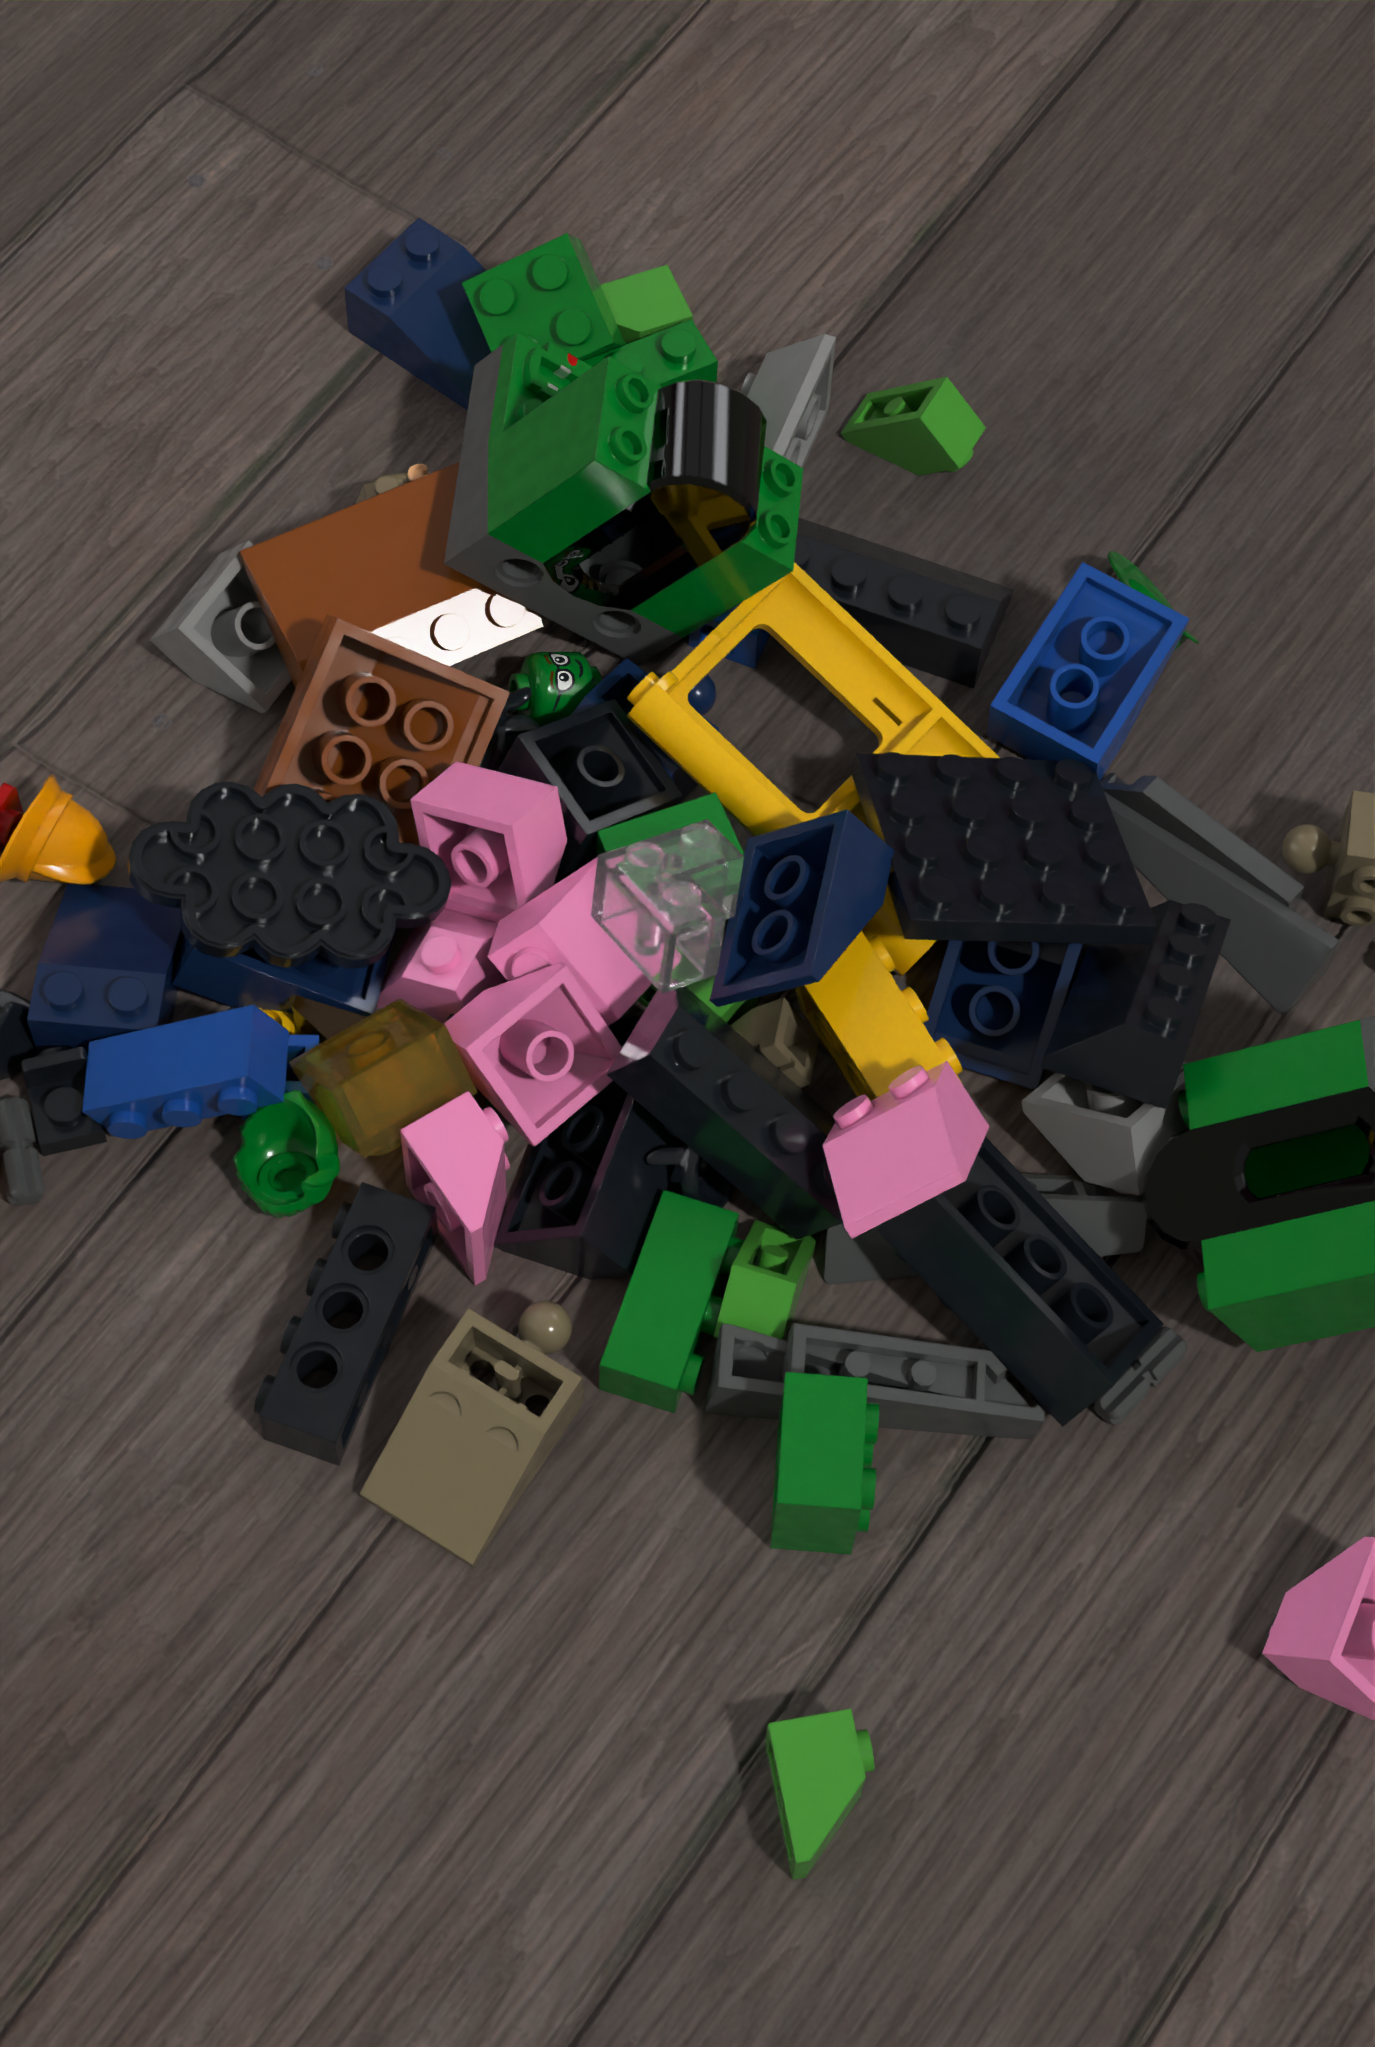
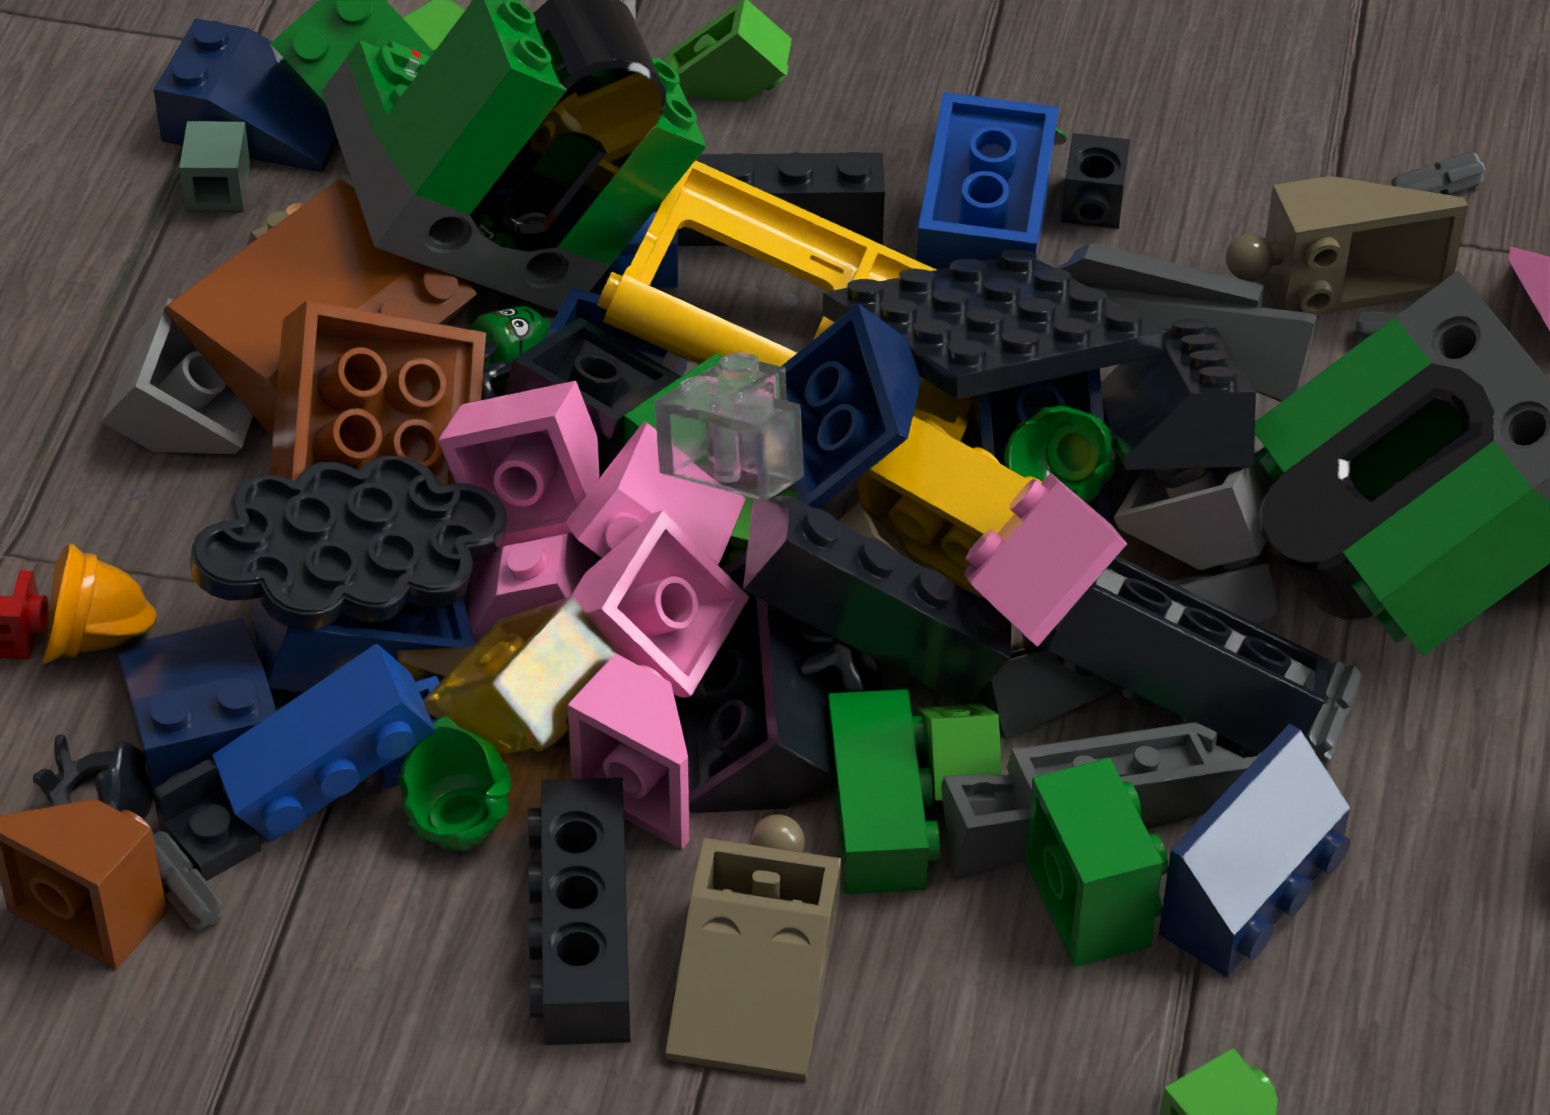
camera: 20 degrees left, 15 degrees down
(376, 385) = (215, 166): none -> sand green brick
(978, 1513) = (1254, 855): none -> slope
(998, 1016) = (1067, 445): none -> green hair
(1213, 677) = (1095, 180): none -> black brick

